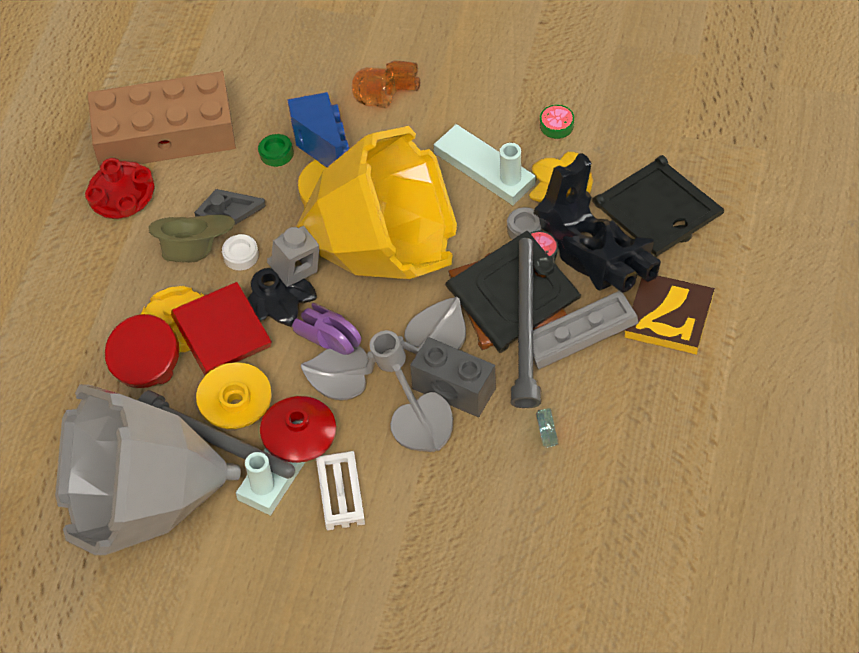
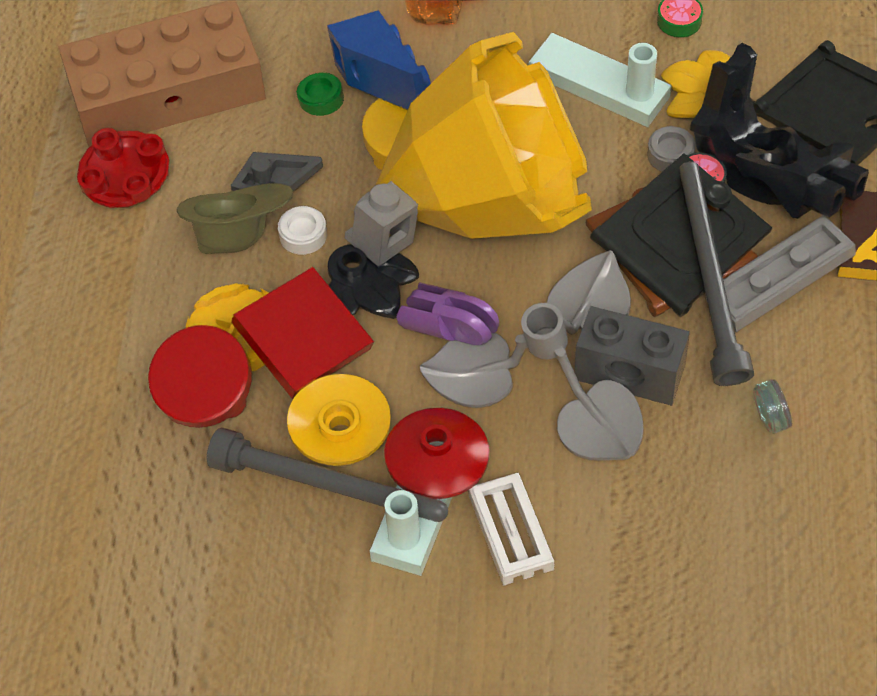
camera: 10 degrees left, 0 degrees up
(130, 471) = (221, 541): light grey piece -> none

